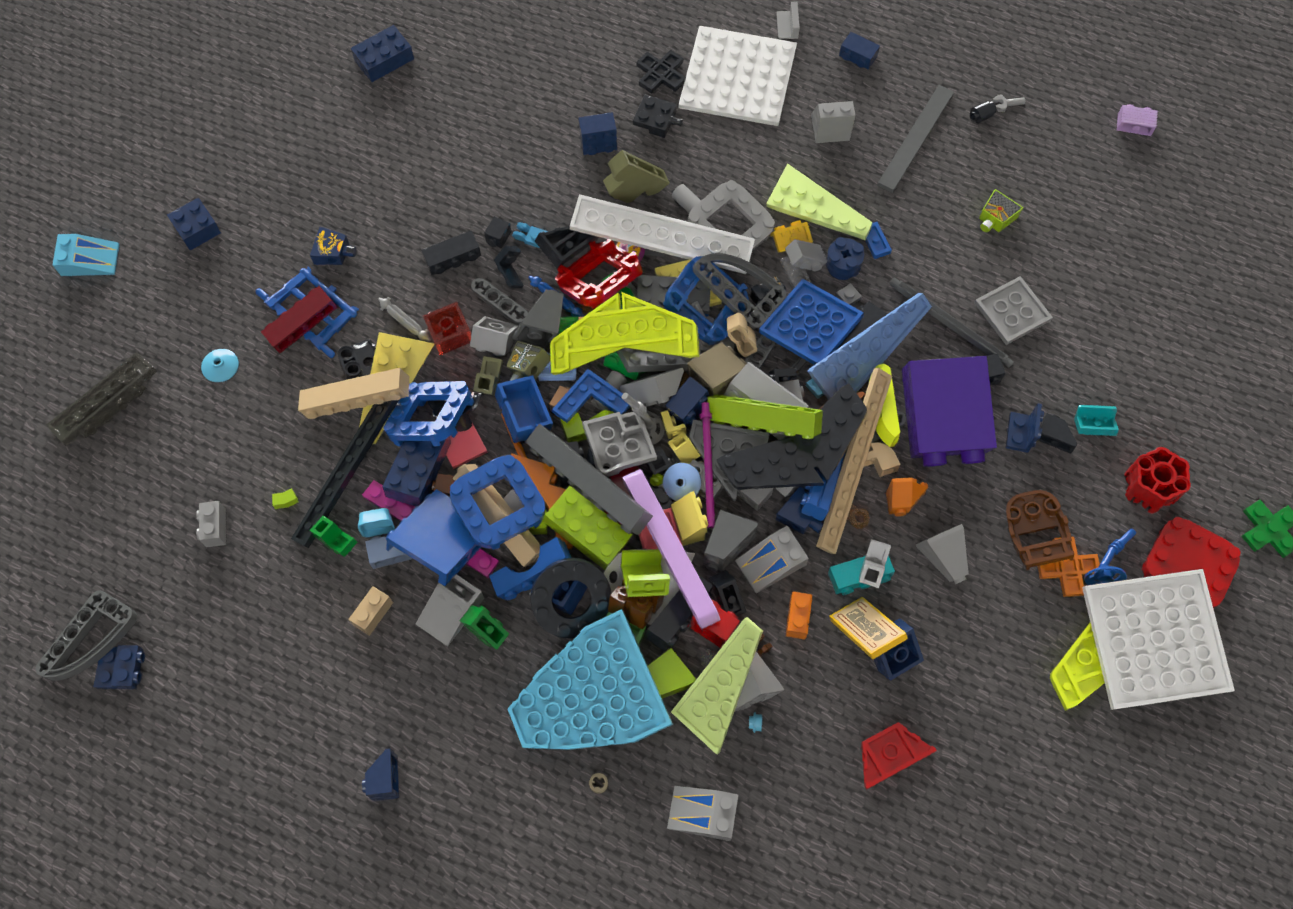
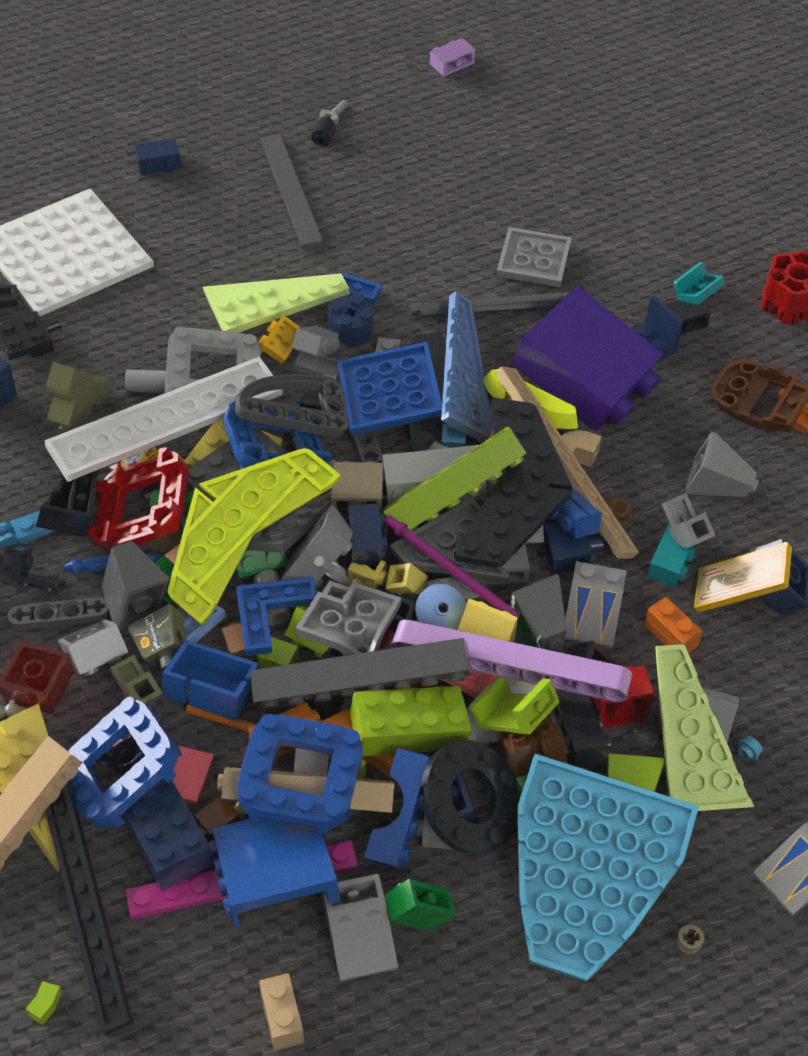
camera: 50 degrees left, 15 degrees down
(333, 536) = (153, 984): green brick -> none
(375, 522) = (182, 923): medium azure piece -> none
(379, 556) = (224, 943): sand blue slope -> none
(741, 334) = (341, 444): tan brick -> none
(788, 22) = (62, 177): light grey panel -> none
(833, 121) = (206, 221): light grey slope -> none
(904, 495) = (632, 459): orange slope -> none
(999, 212) = (430, 194): torso -> none

